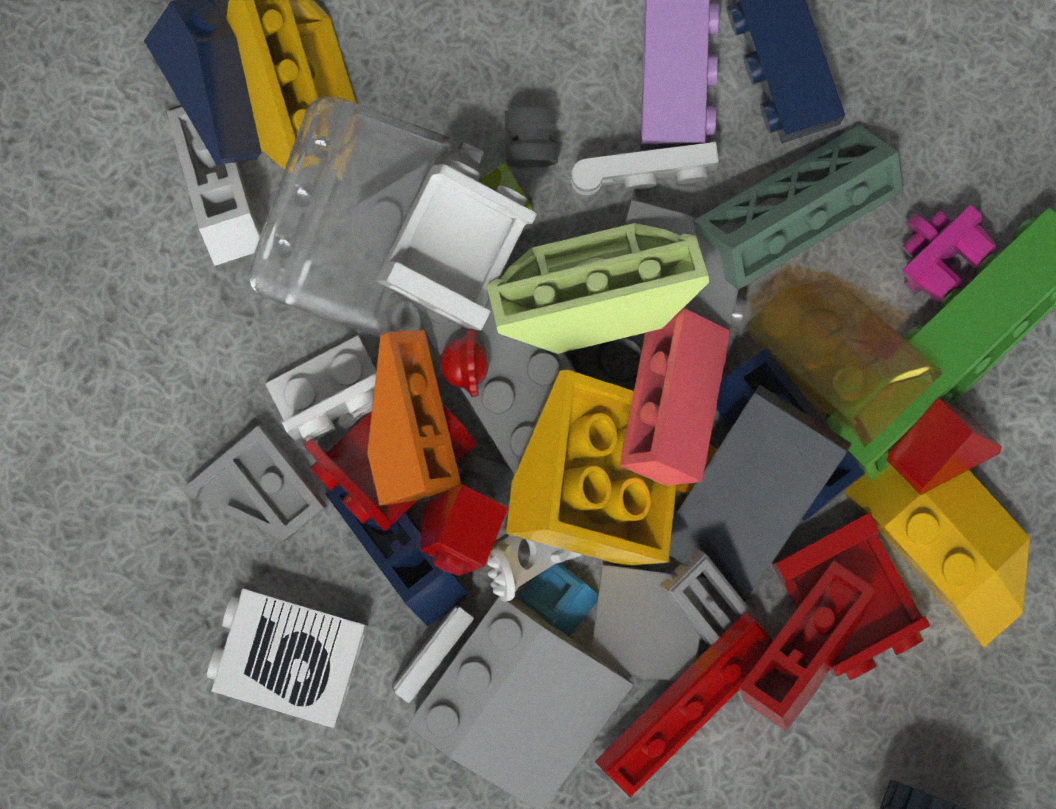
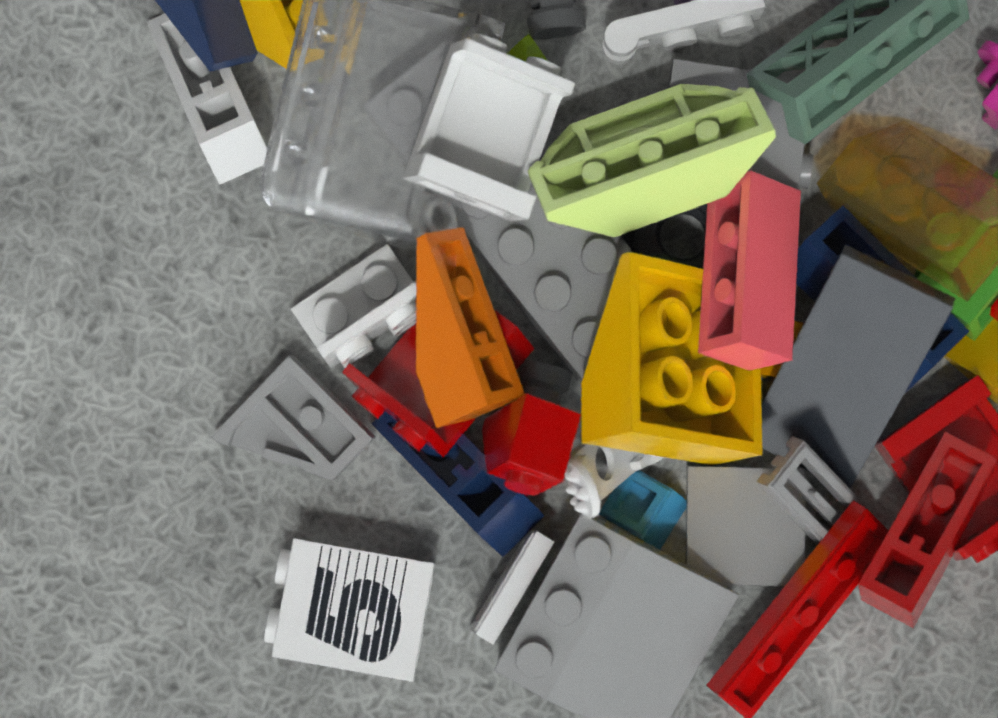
camera: 10 degrees left, 0 degrees up
(465, 363) = (512, 259): red piece -> none

